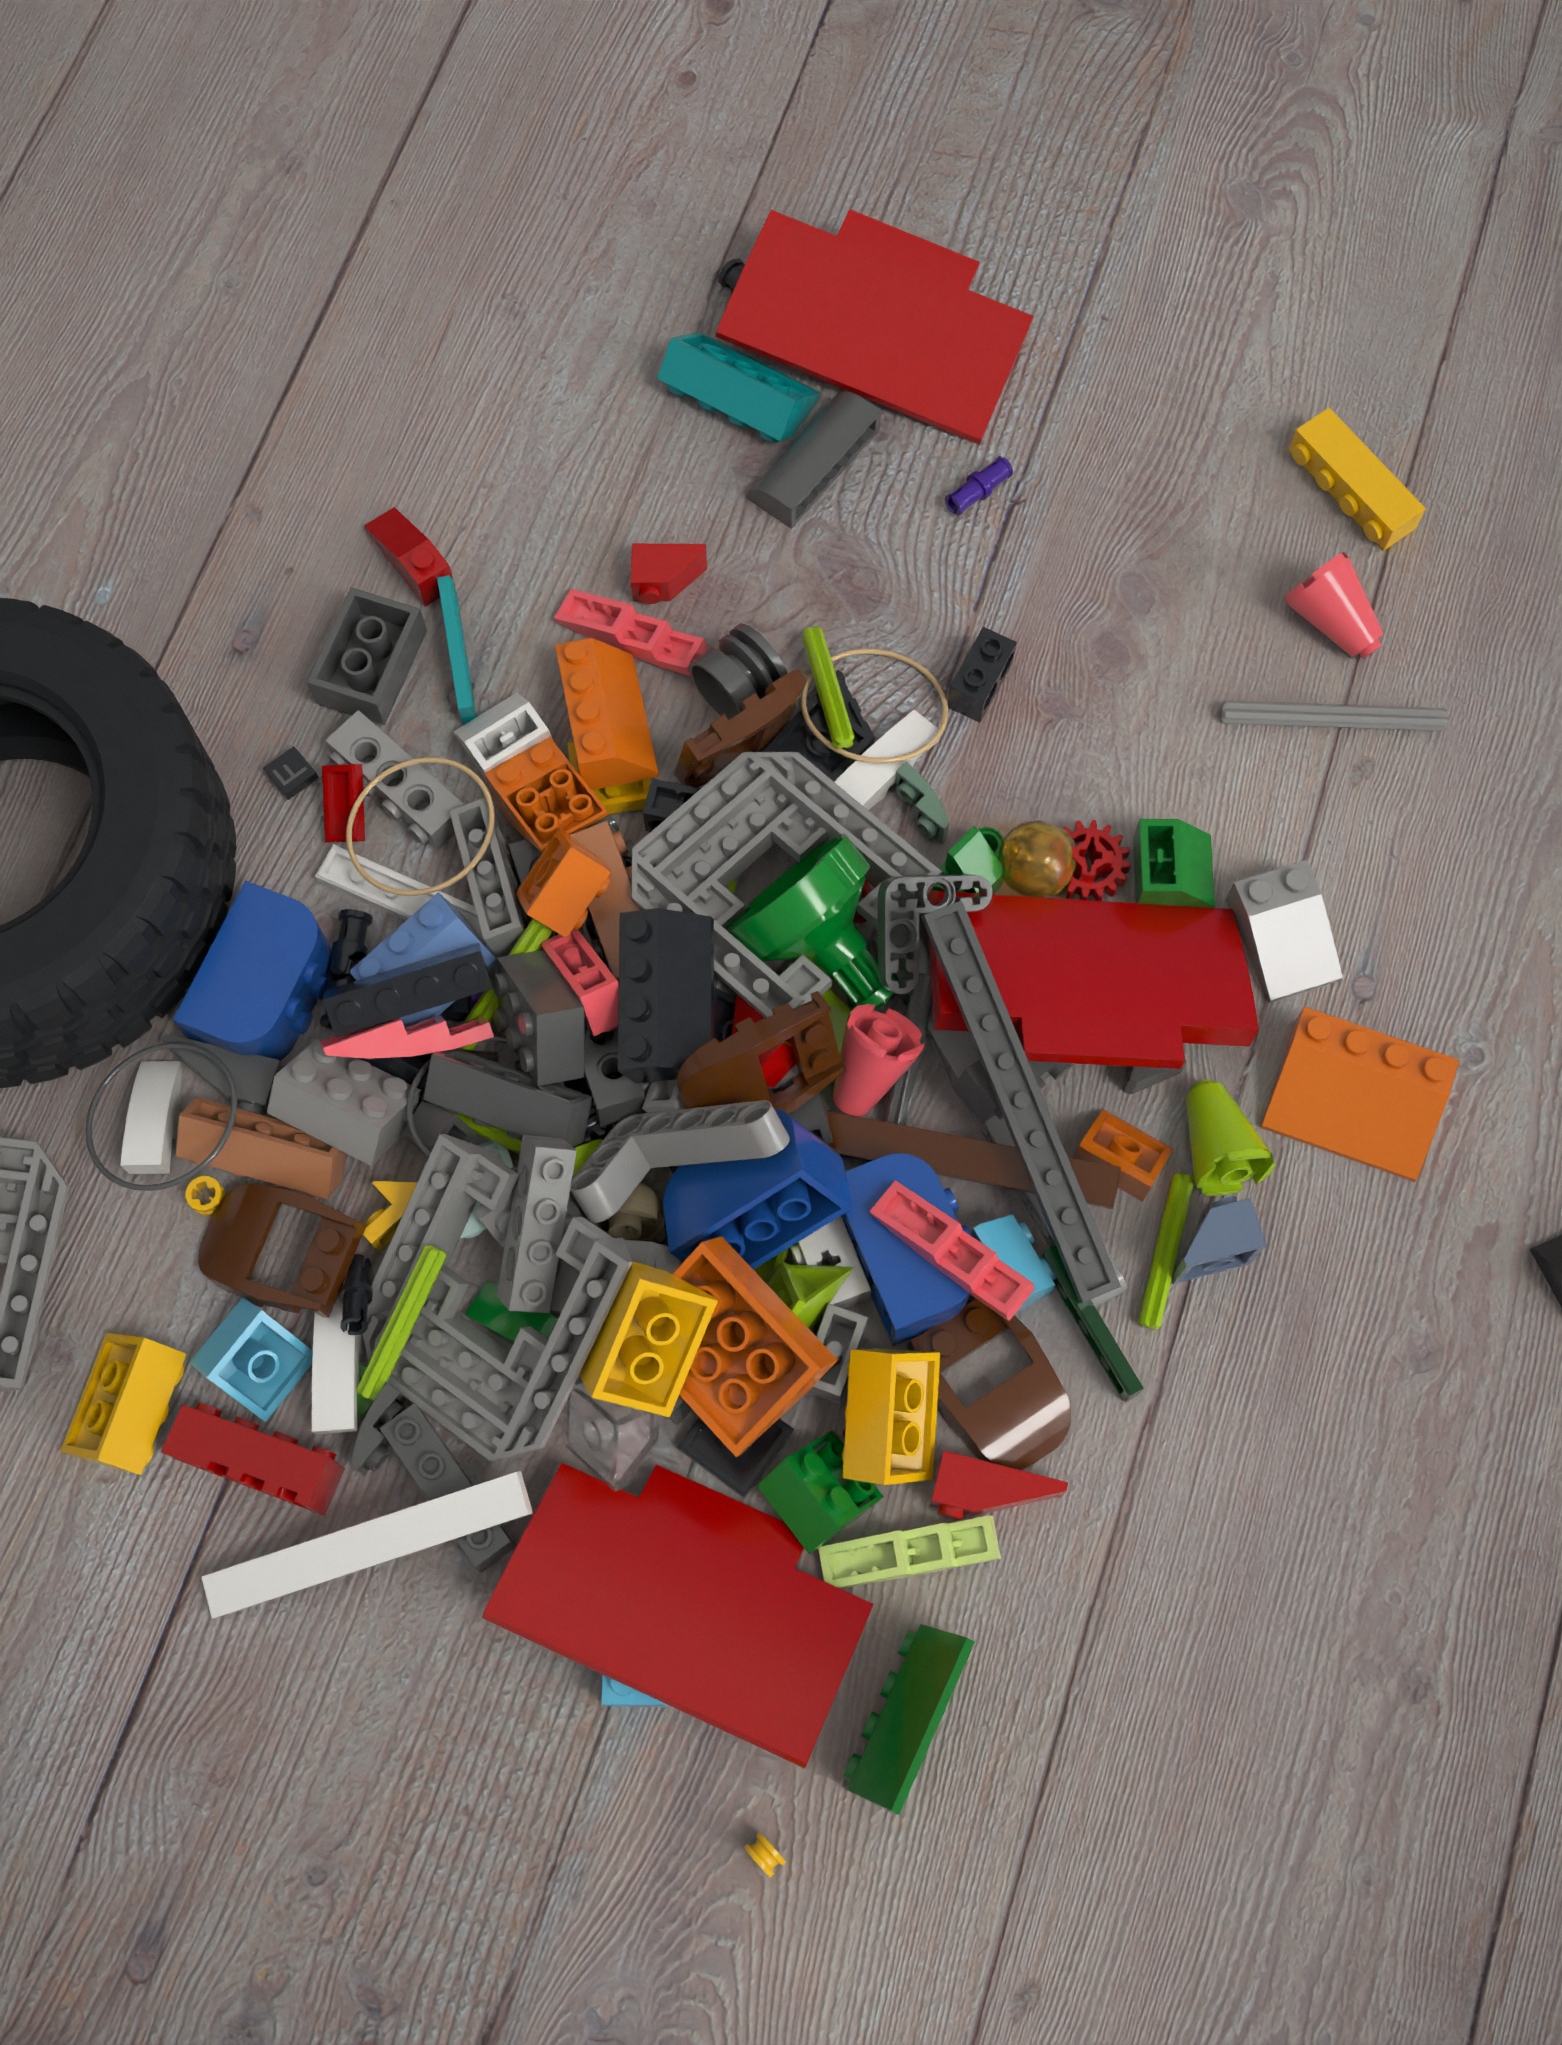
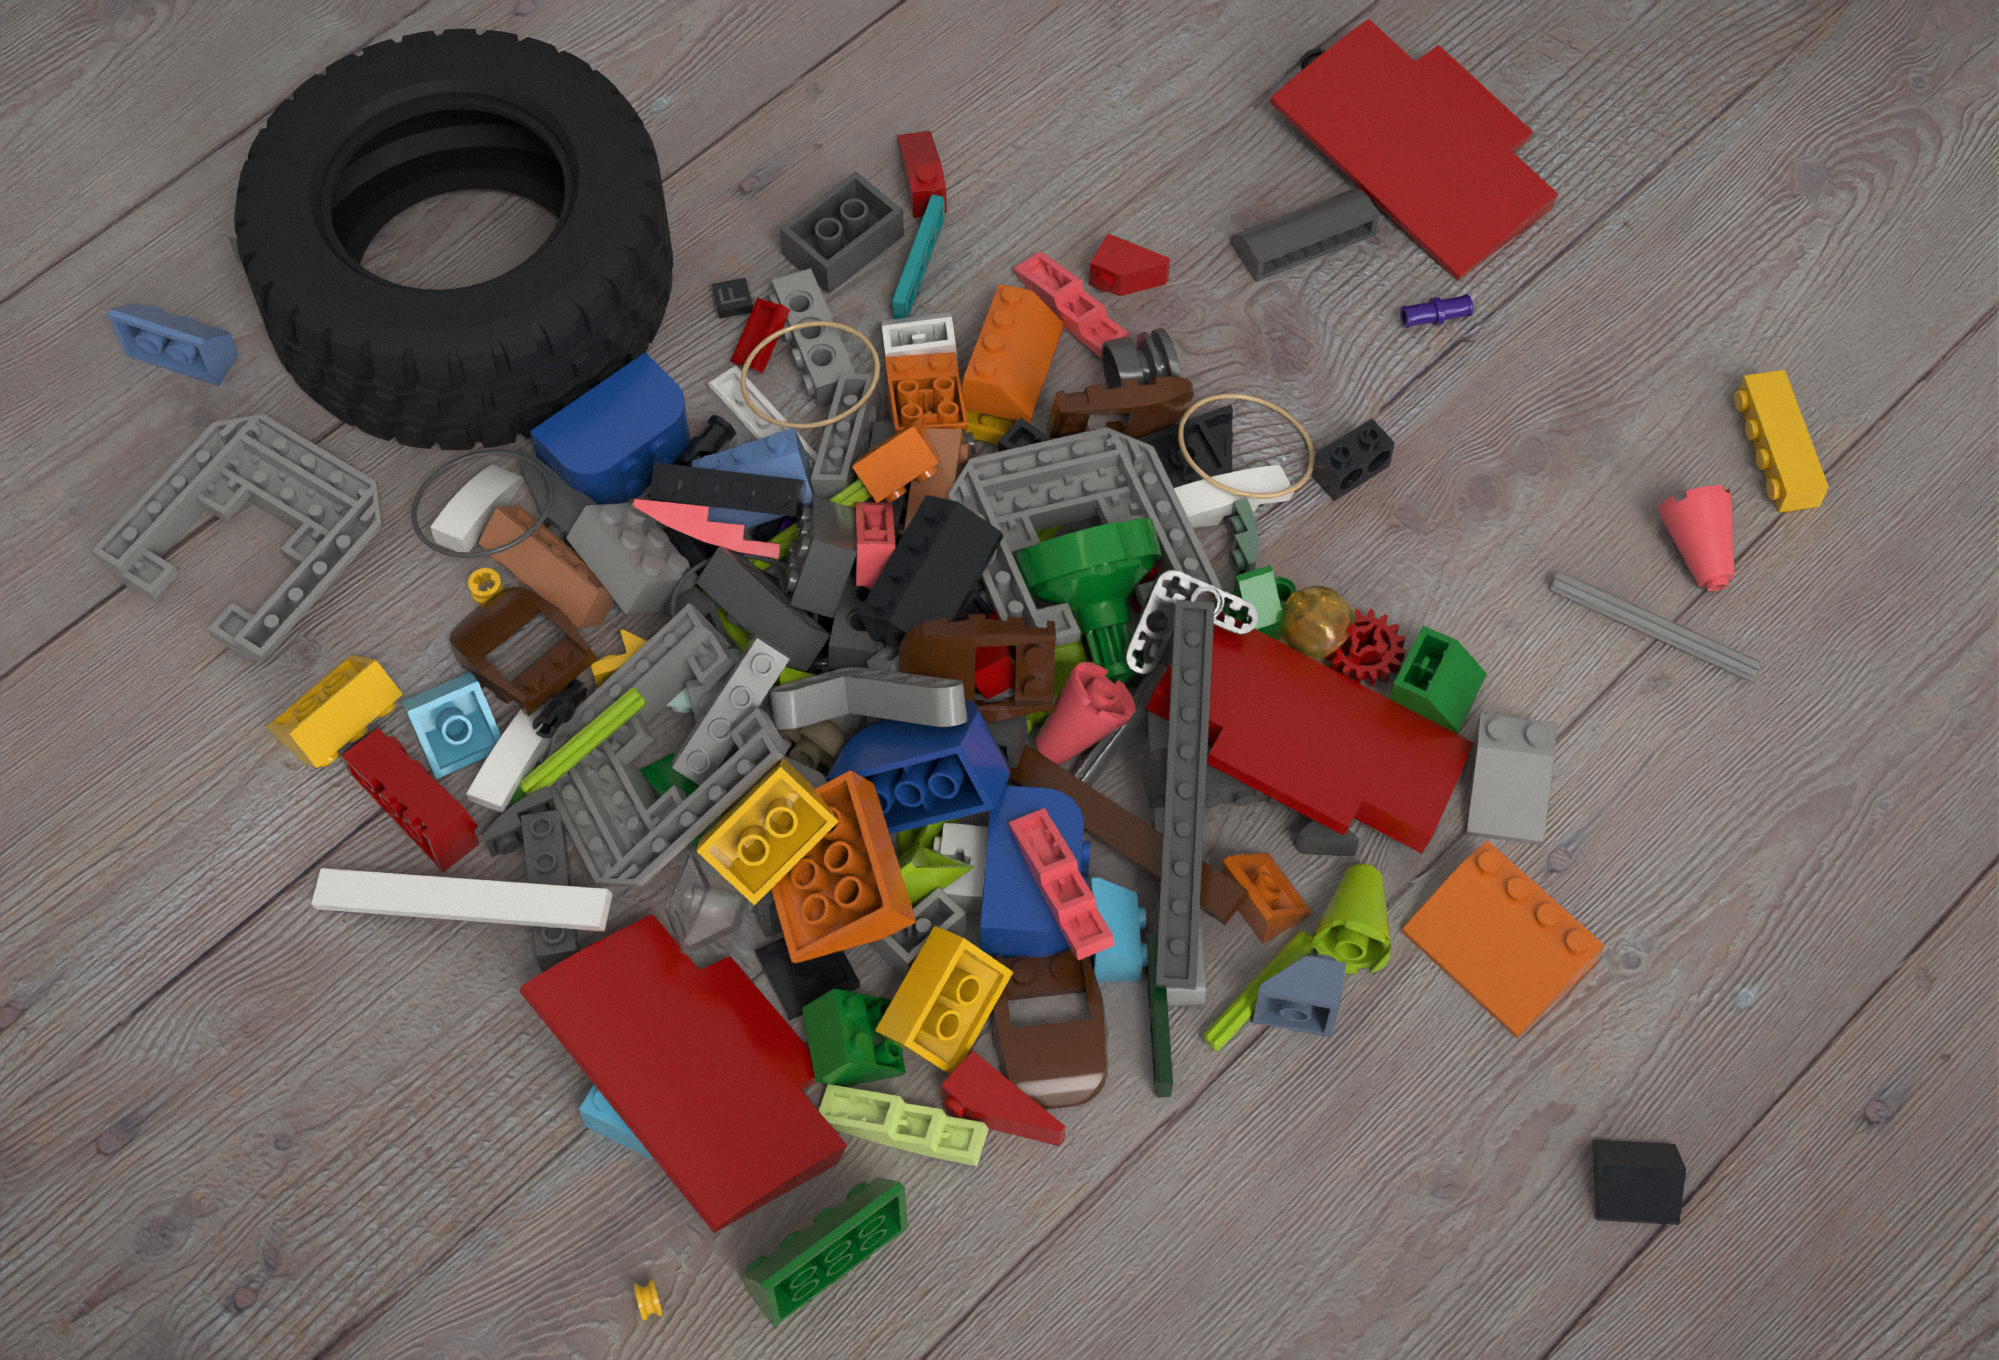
camera: 25 degrees right, 10 degrees down
(737, 386) = (1269, 149): teal slope -> none
(828, 687) = (1211, 412): lime axle -> none

